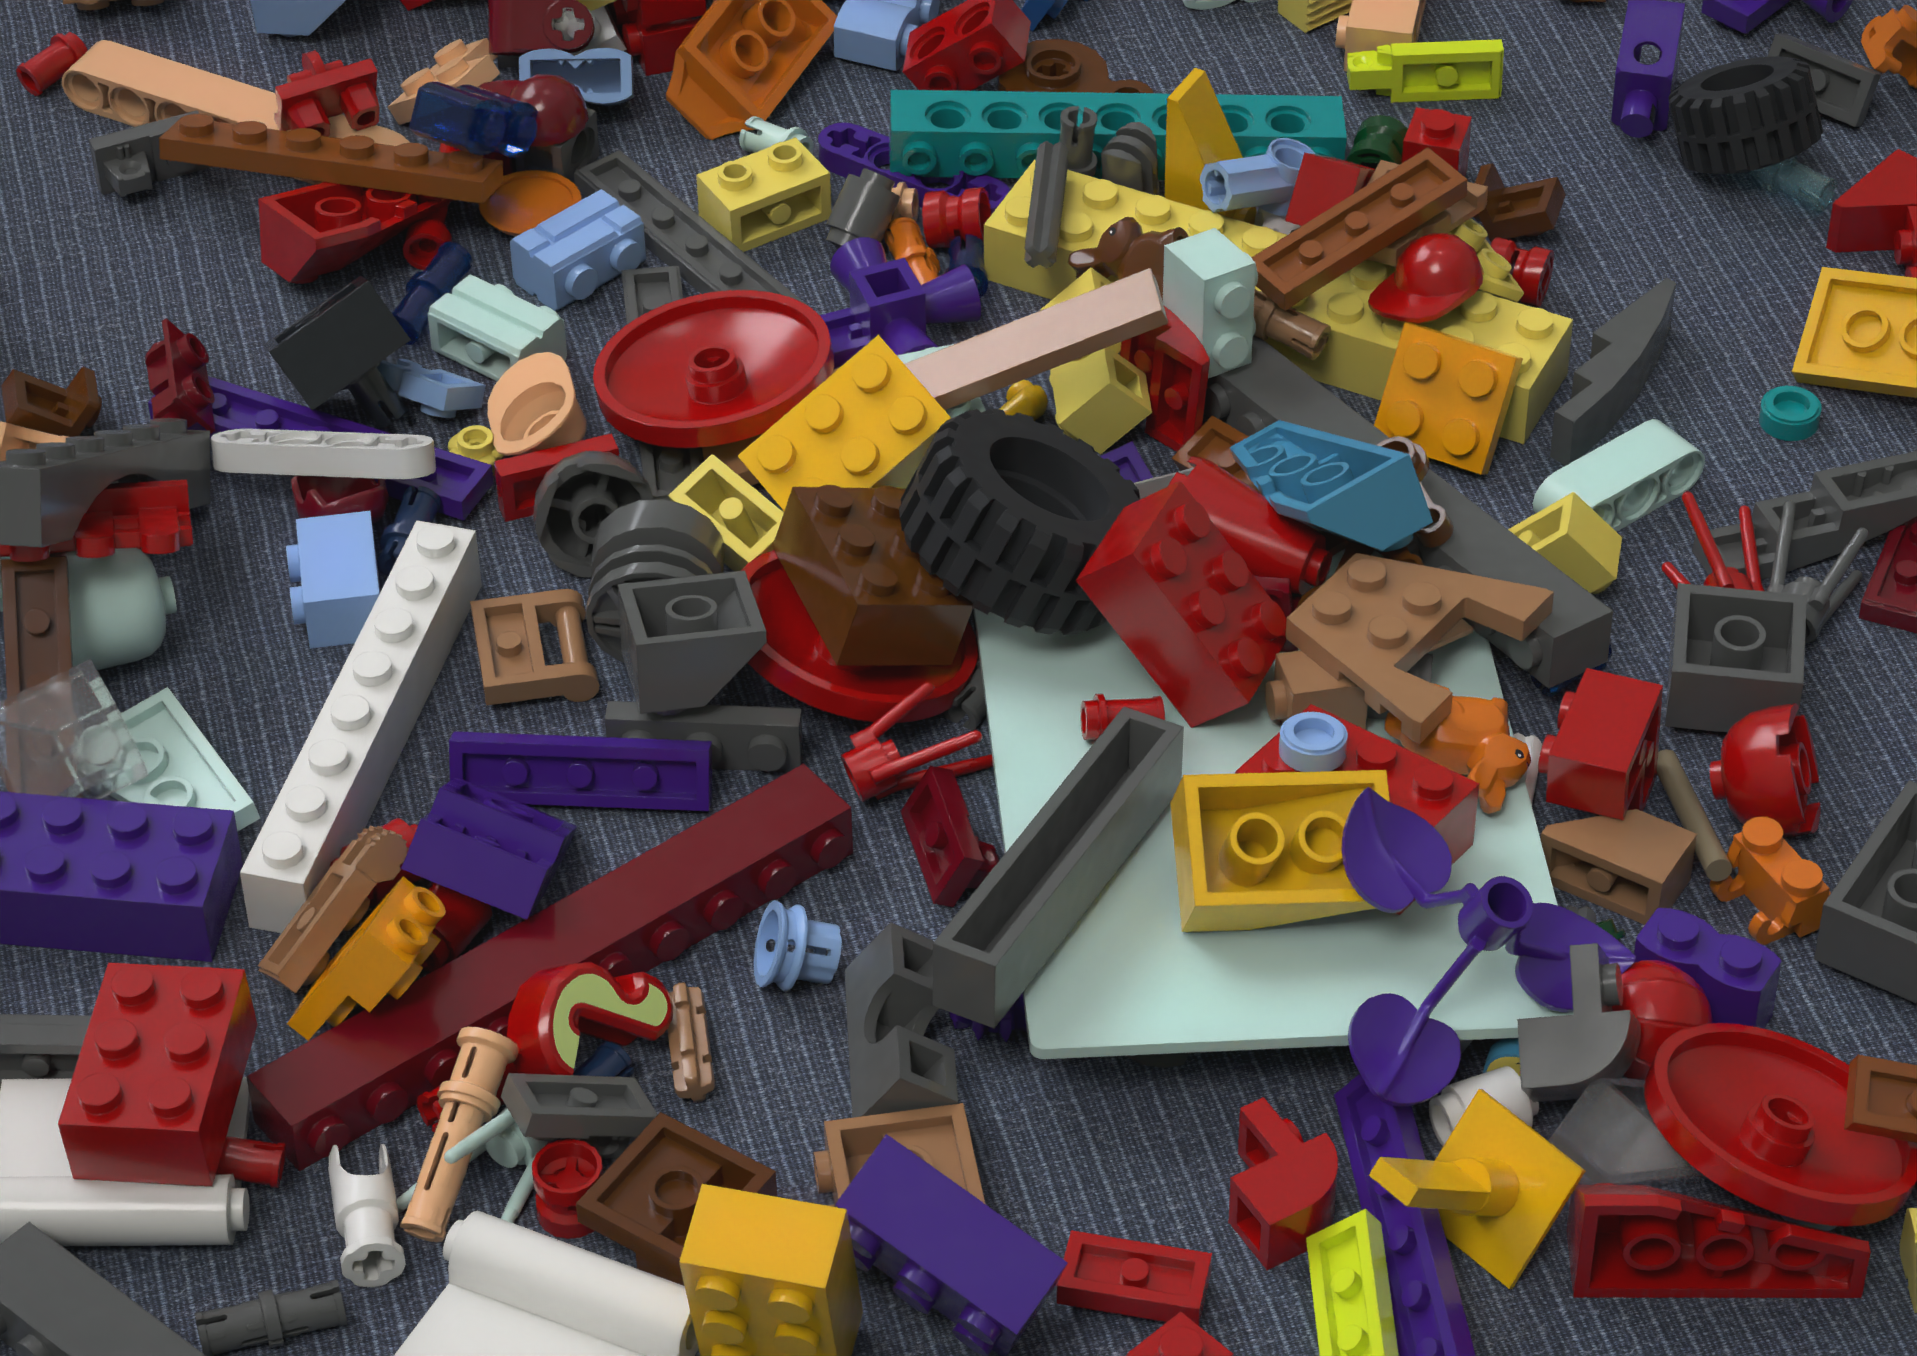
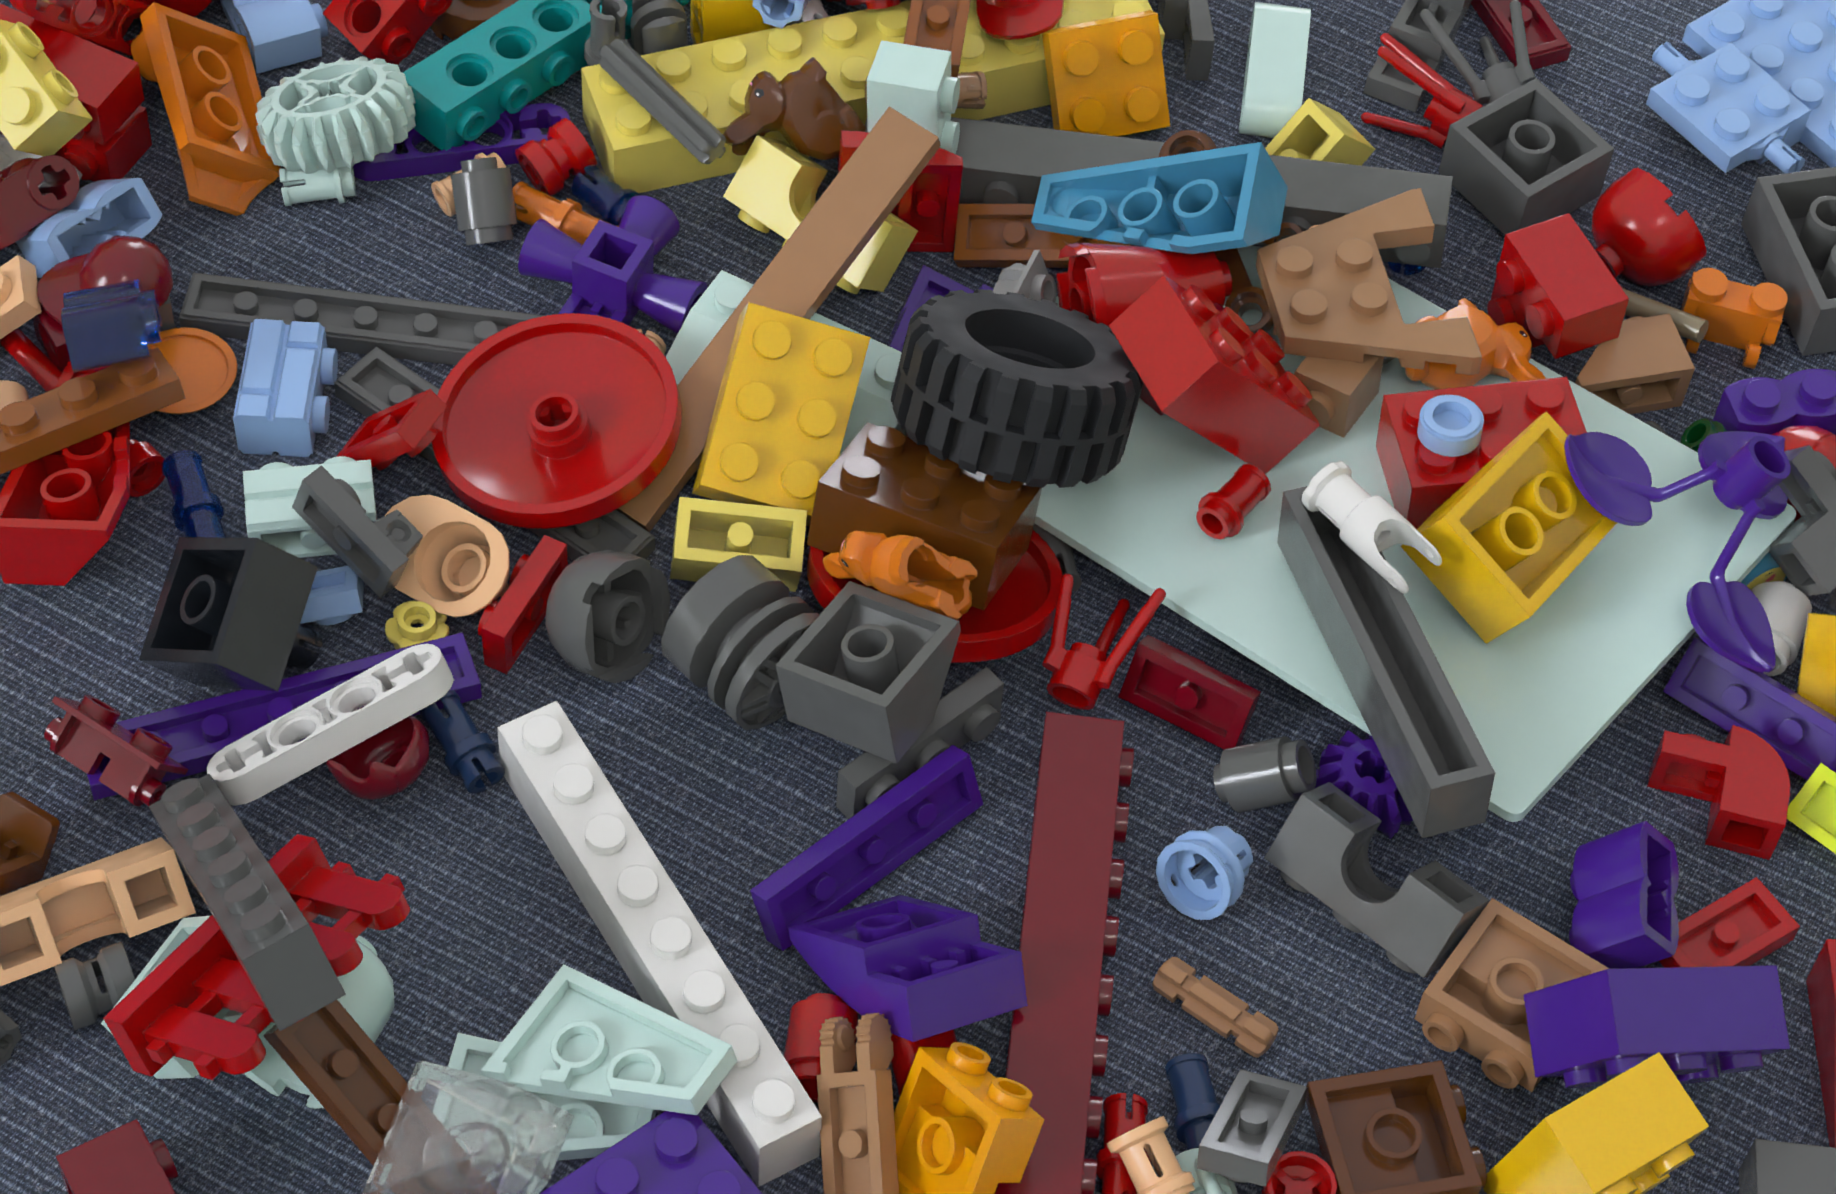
camera: 50 degrees left, 10 degrees up
(223, 748) = (609, 1049): none -> light aqua wing
(336, 574) = (463, 826): light blue brick -> none
(488, 367) = (371, 549): none -> dark grey hinge
(513, 652) = (677, 782): medium nougat plate -> none
(584, 999) = (1144, 1060): red animal -> none
(599, 314) = (396, 431): none -> red plate
(765, 194) = (373, 234): light yellow brick -> none
(785, 590) = (905, 570): none -> orange animal
(823, 96) = (336, 115): none -> light aqua gear
(915, 908) = (1264, 773): none -> dark grey brick
(1077, 1183) = (1626, 898): none -> dark purple brick
(1136, 747) = (1364, 521): none -> white piece

